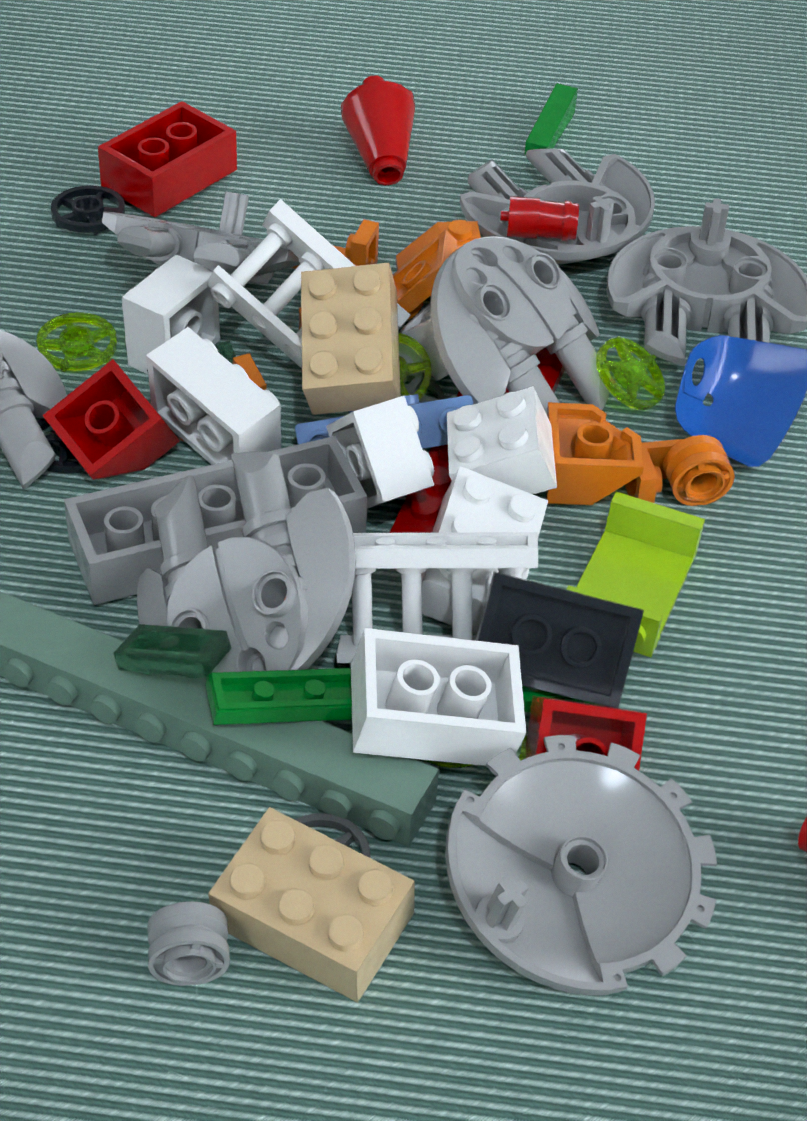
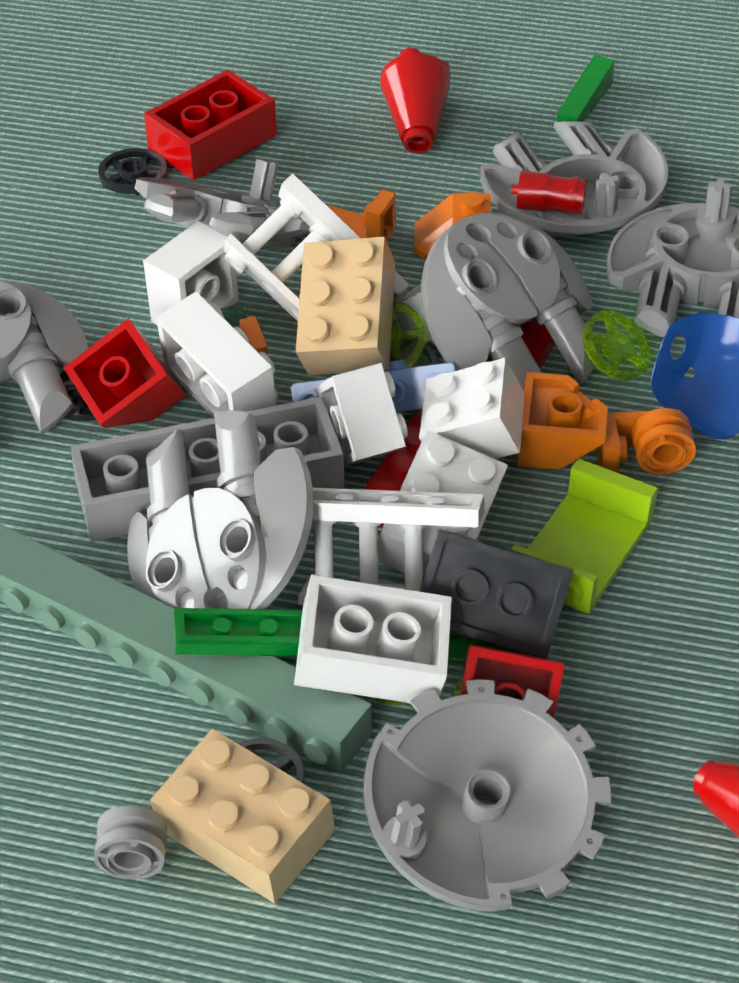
camera: 10 degrees right, 0 degrees up
(77, 341) = (106, 298): clear neon green wheel -> none
(172, 650) = (146, 586): clear green plate -> none
(417, 276) = (415, 251): orange plate -> none

